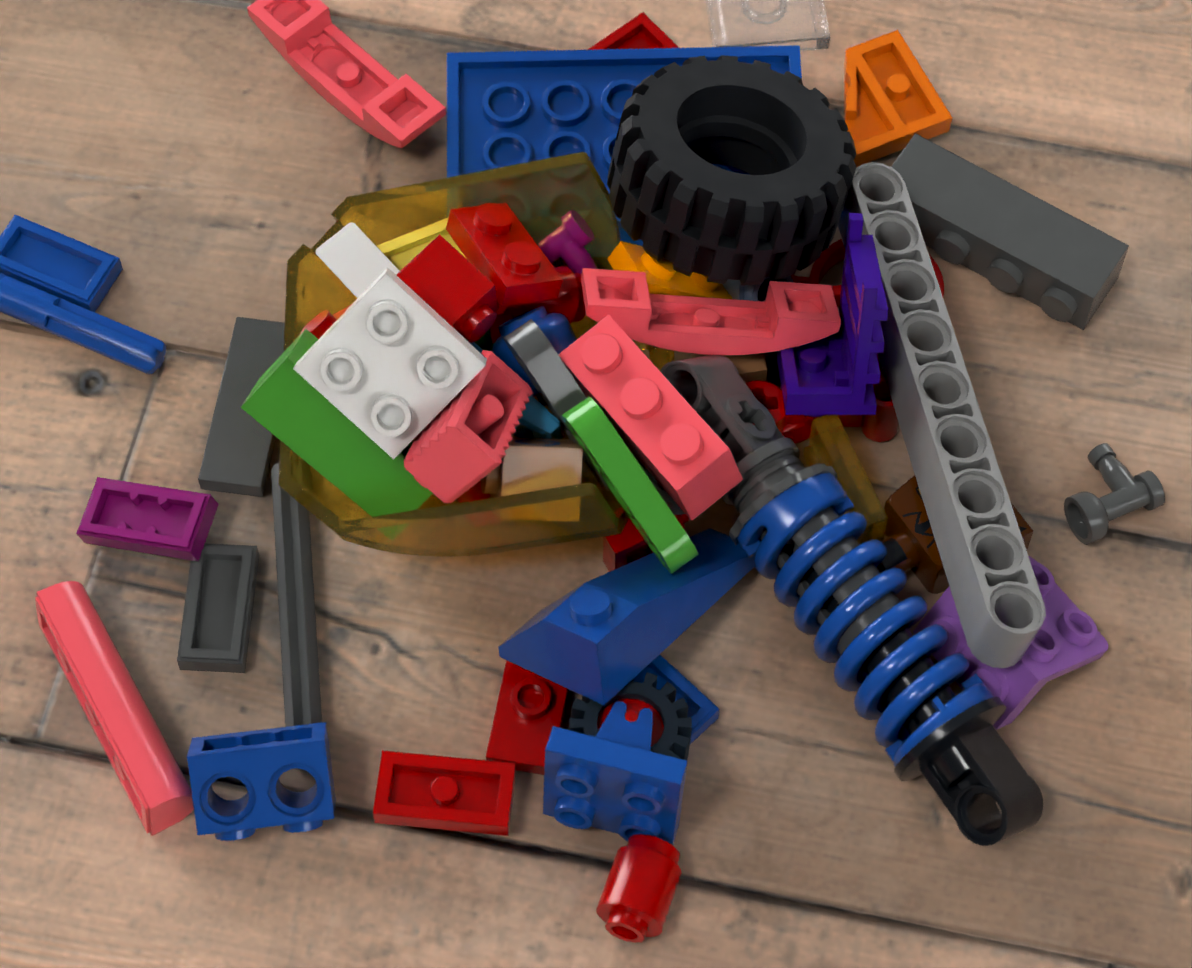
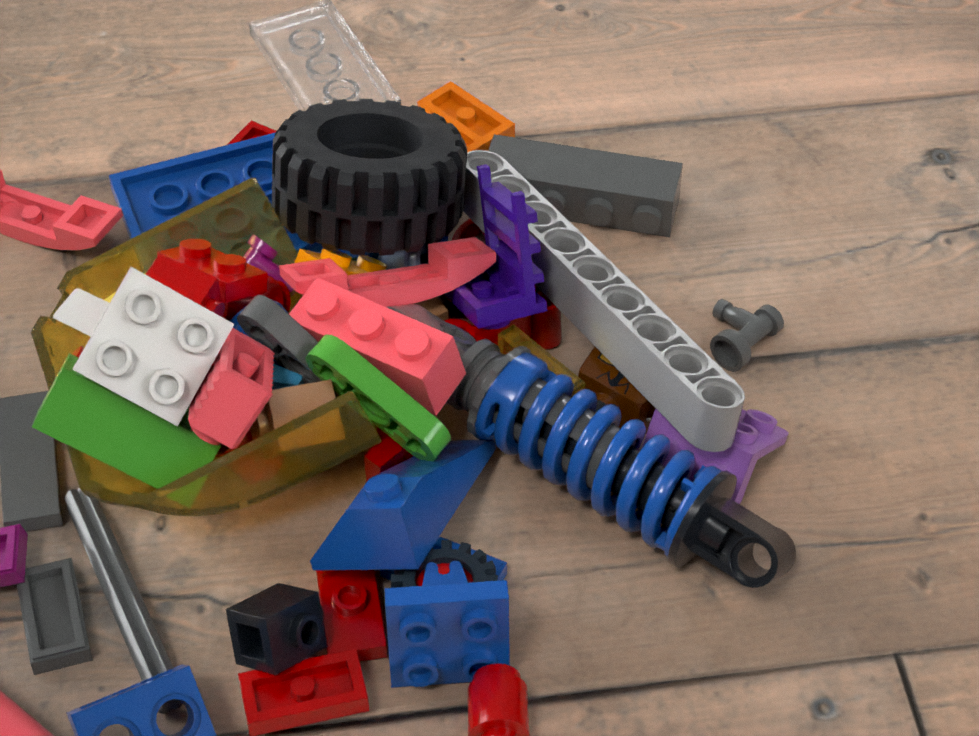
camera: 20 degrees left, 15 degrees down
(438, 714) = (277, 628): none -> black brick

